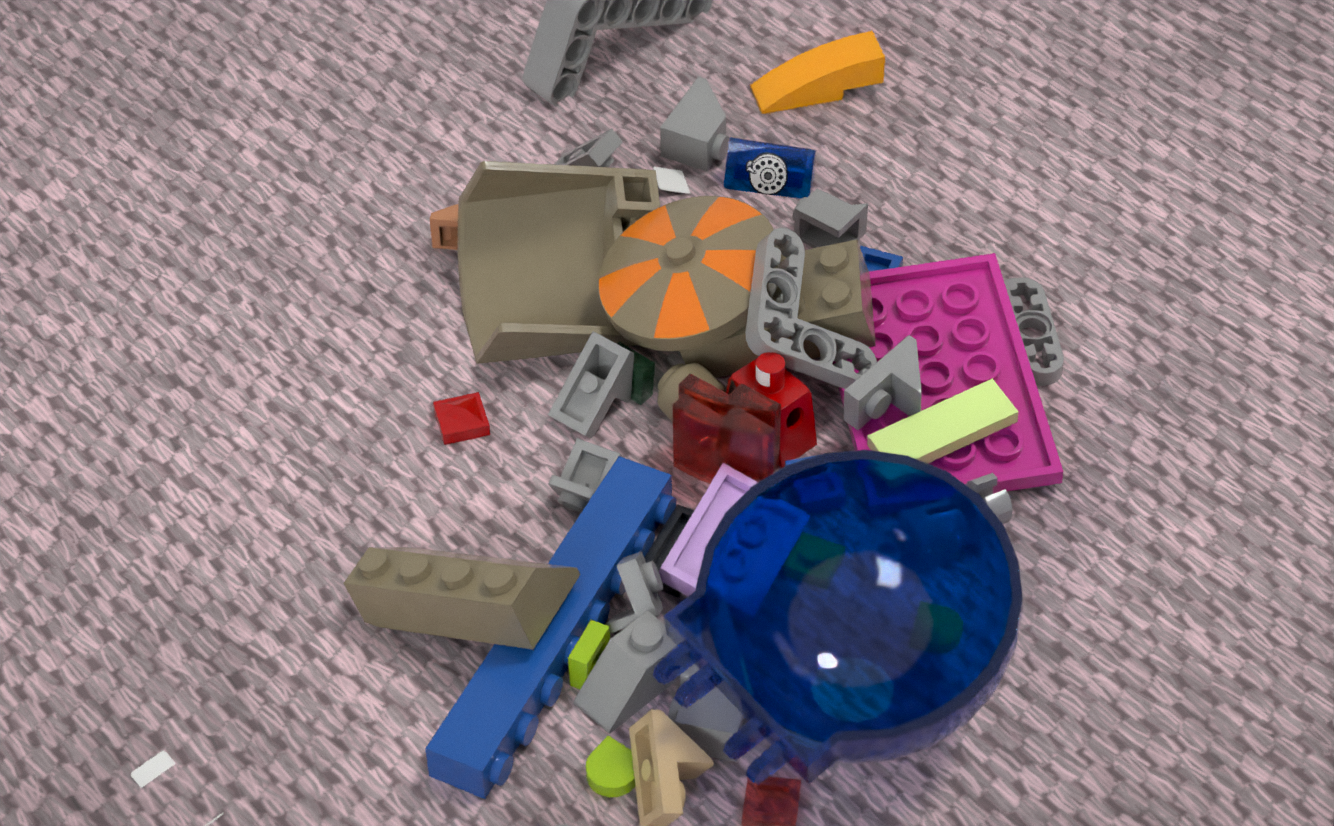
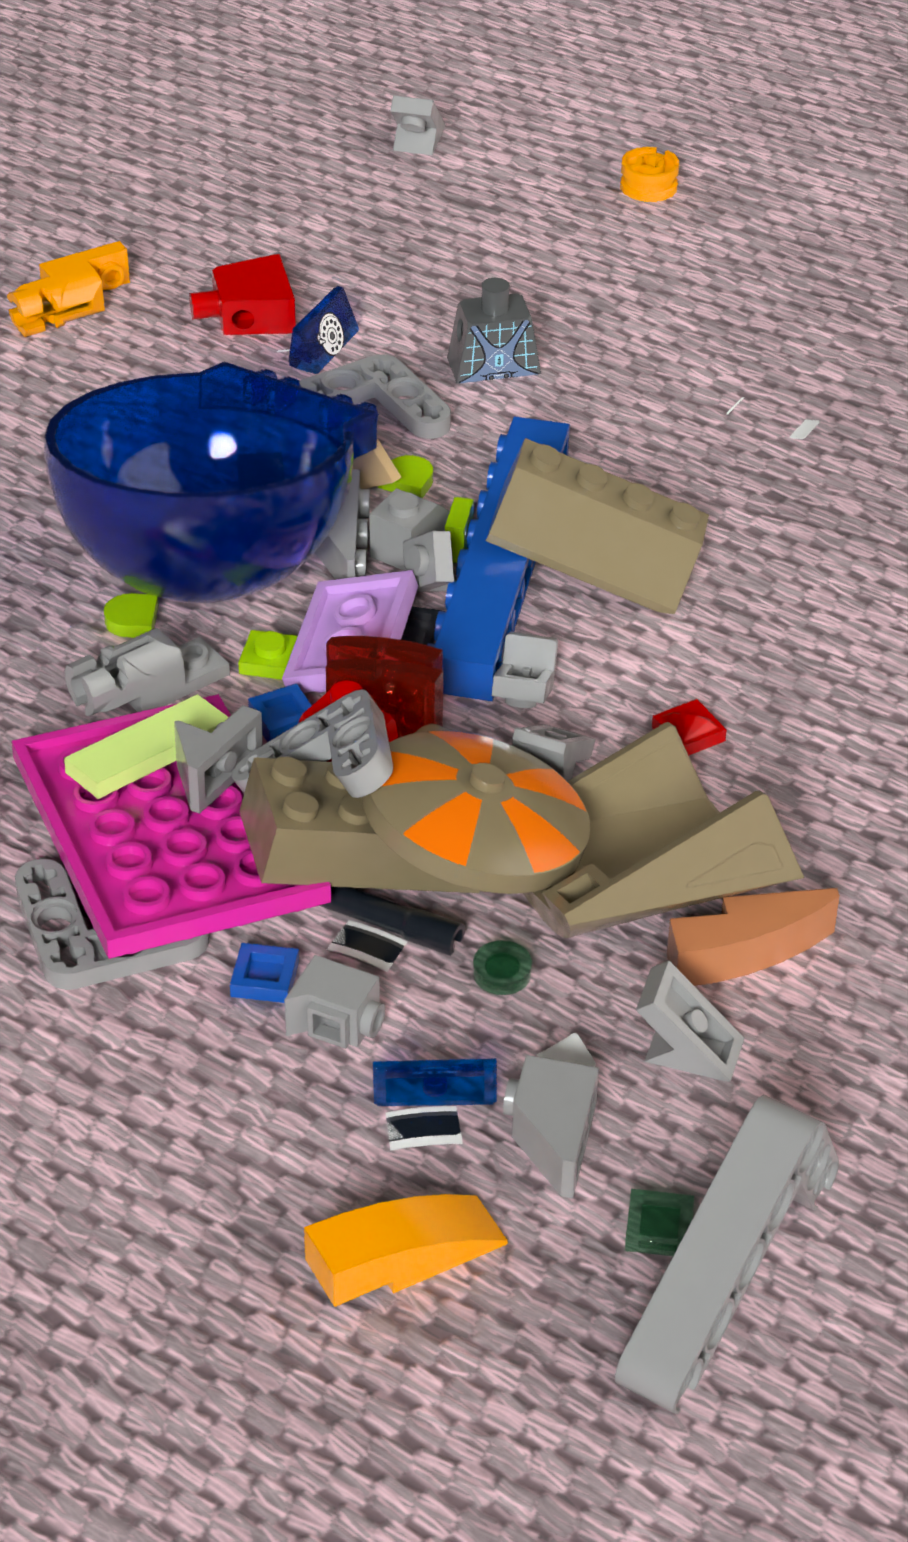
camera: 165 degrees right, 5 degrees down
(650, 76) = (657, 1221): none -> clear green tile

